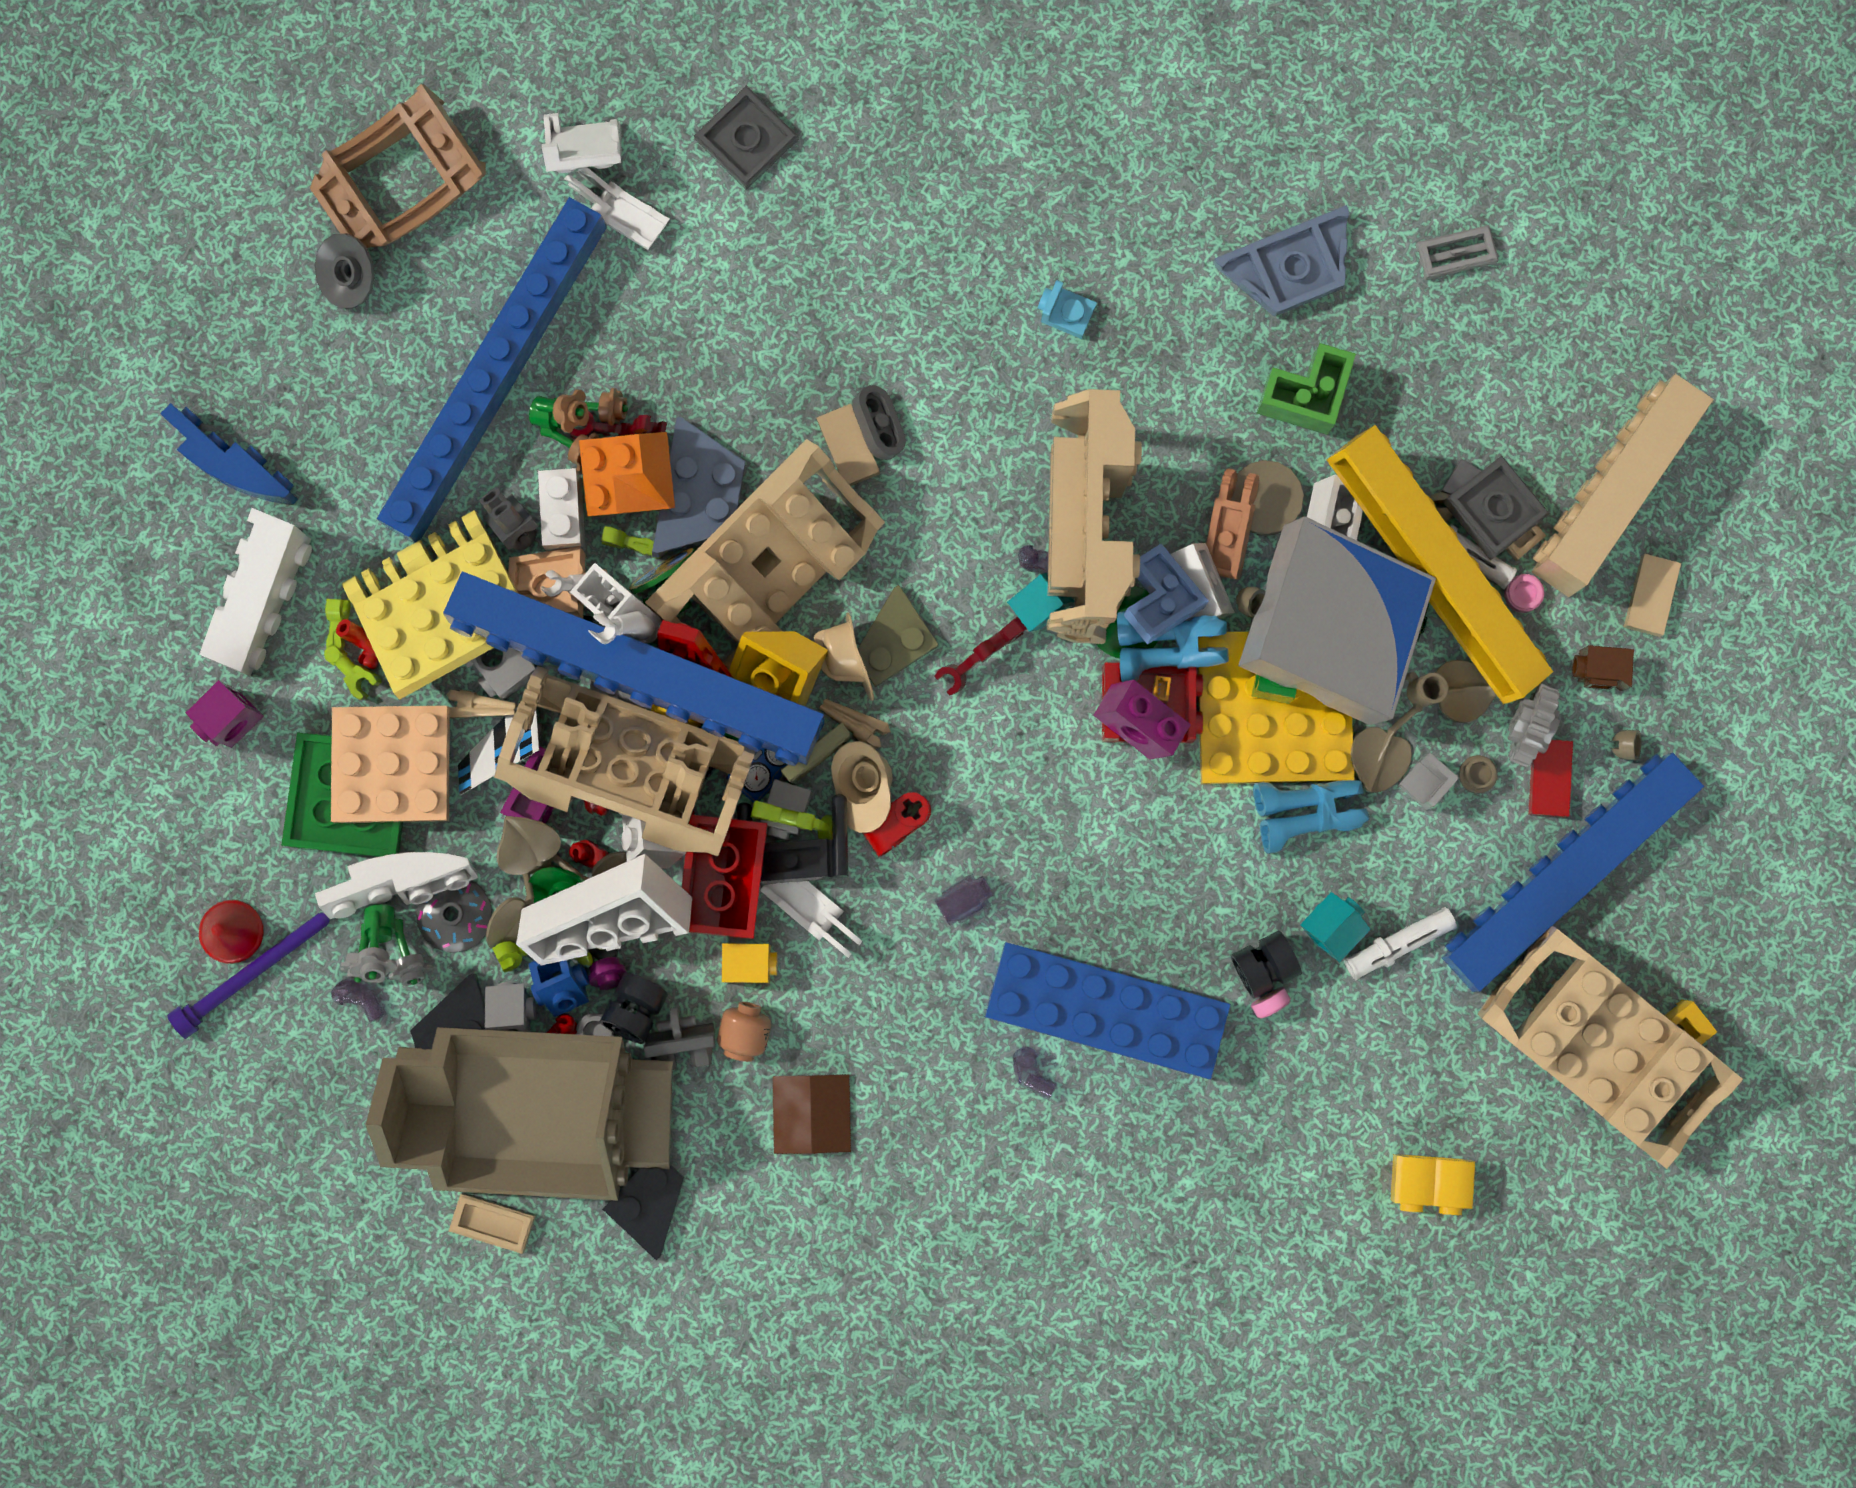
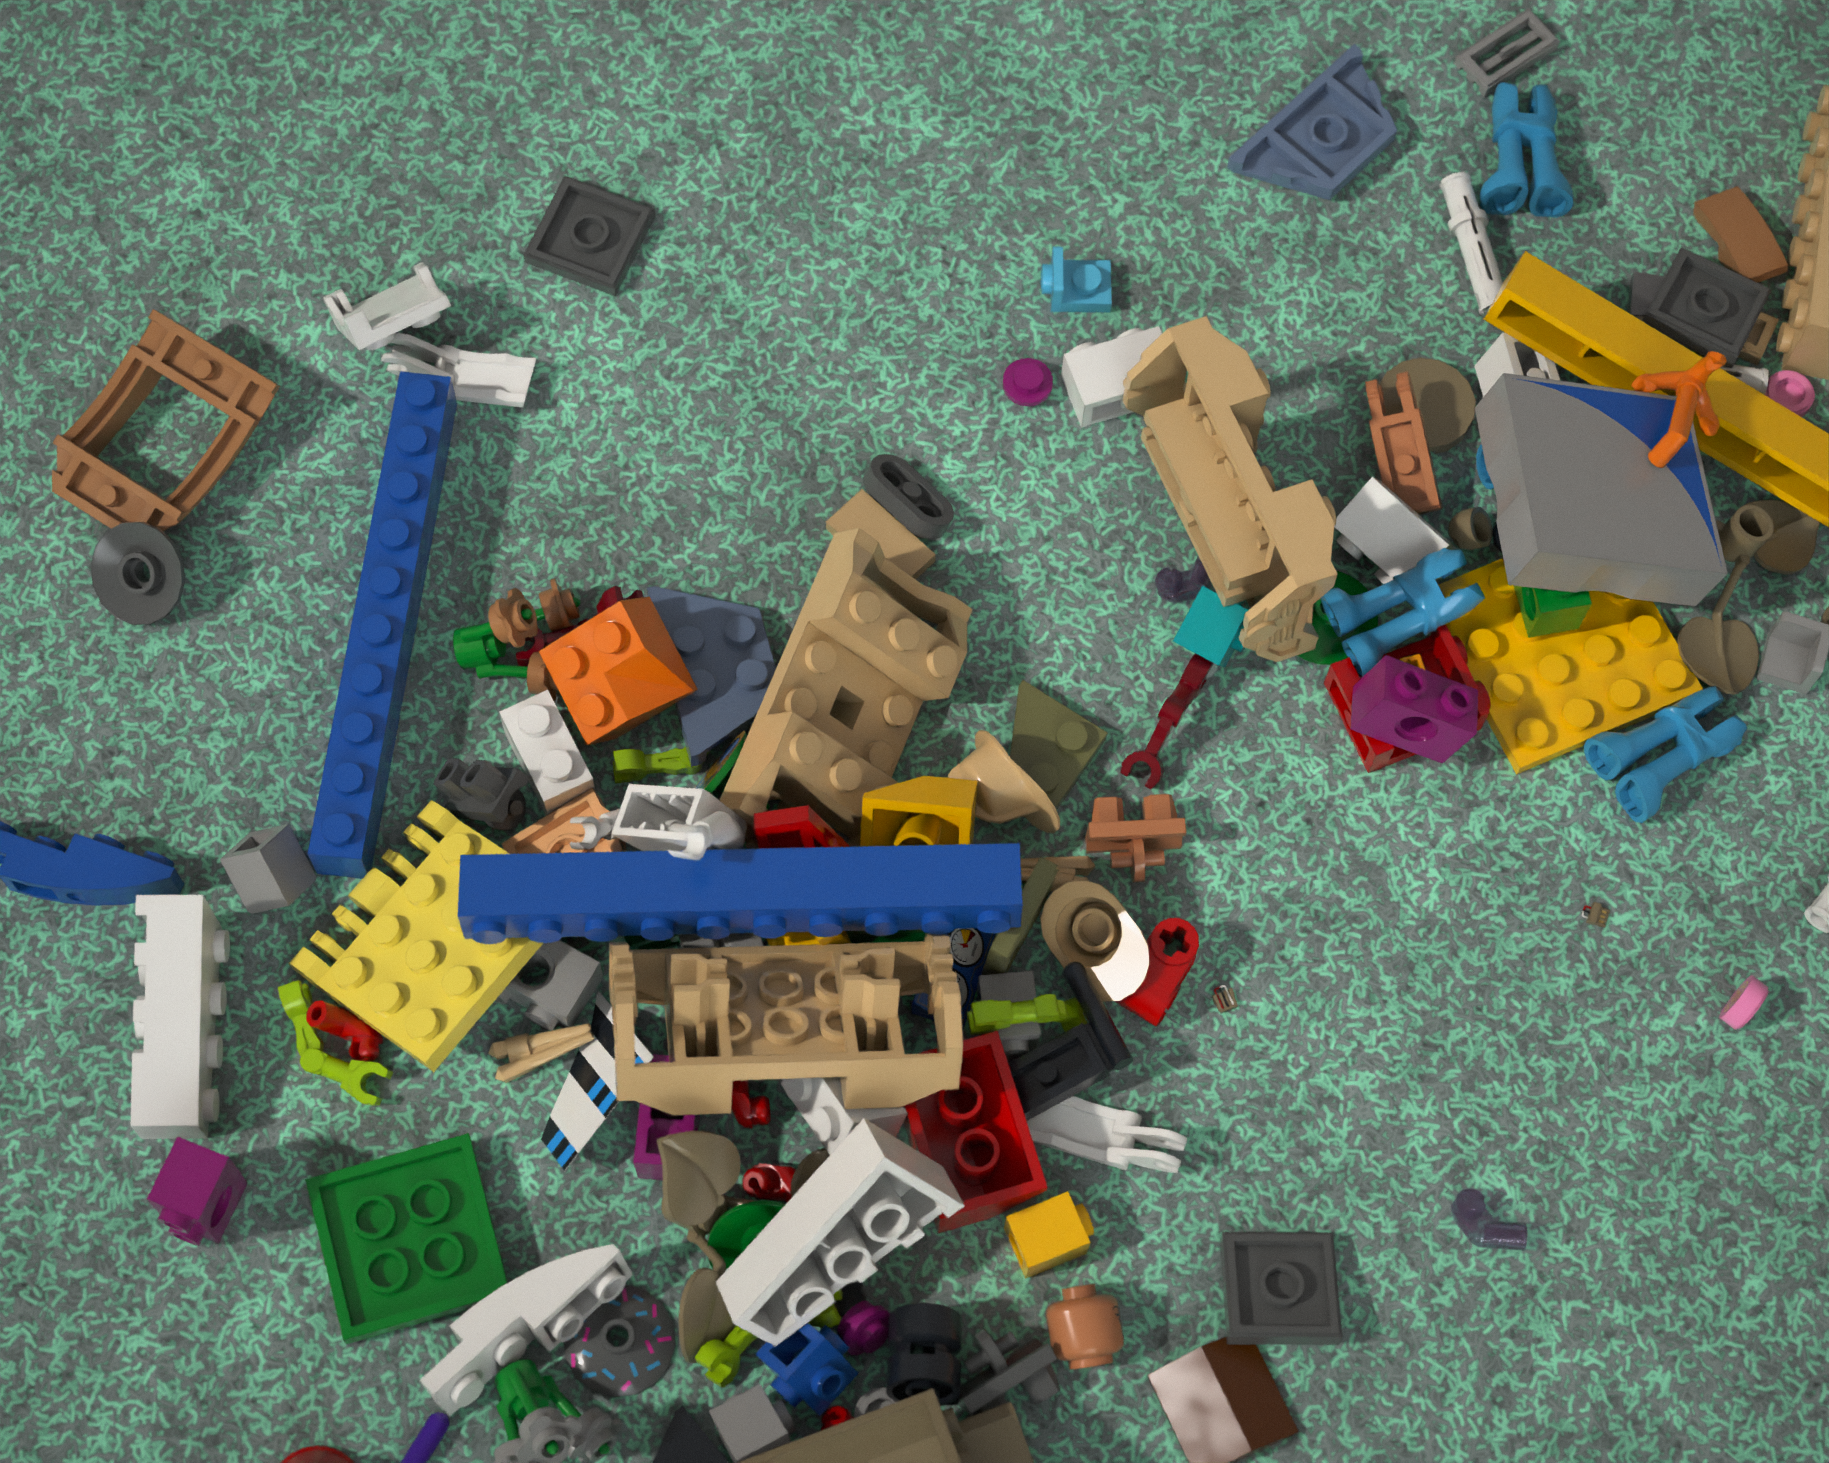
camera: 25 degrees left, 15 degrees down
(353, 513) = (268, 869): none -> light grey panel
(390, 764) = (453, 1167): light nougat plate -> none
(879, 1059) = (1280, 1288): none -> dark grey tile
(908, 714) = (1154, 833): none -> nougat hips
(934, 856) = (1224, 1000): none -> dark tan piece
(964, 899) = (1292, 1034): clear purple brick -> none
(998, 370) = (1027, 382): none -> magenta plate
(1052, 384) = (1097, 372): none -> white brick
(1107, 1010) = (1545, 1098): blue brick -> none
(1170, 598) = (1377, 551): medium blue plate -> none
(1206, 902) = (1597, 914): none -> dark tan piece
(1266, 964) = (1715, 954): black wheel -> none
(1313, 399) = (1424, 266): bright green brick -> none
(1336, 926) = (1776, 872): teal brick -> none
(1359, 389) = (1469, 226): none -> white pin
(1402, 359) = (1508, 187): none -> dark azure piece
(1436, 576) = (1691, 397): none -> orange piece
(1552, 462) = (1742, 235): none -> medium nougat slope

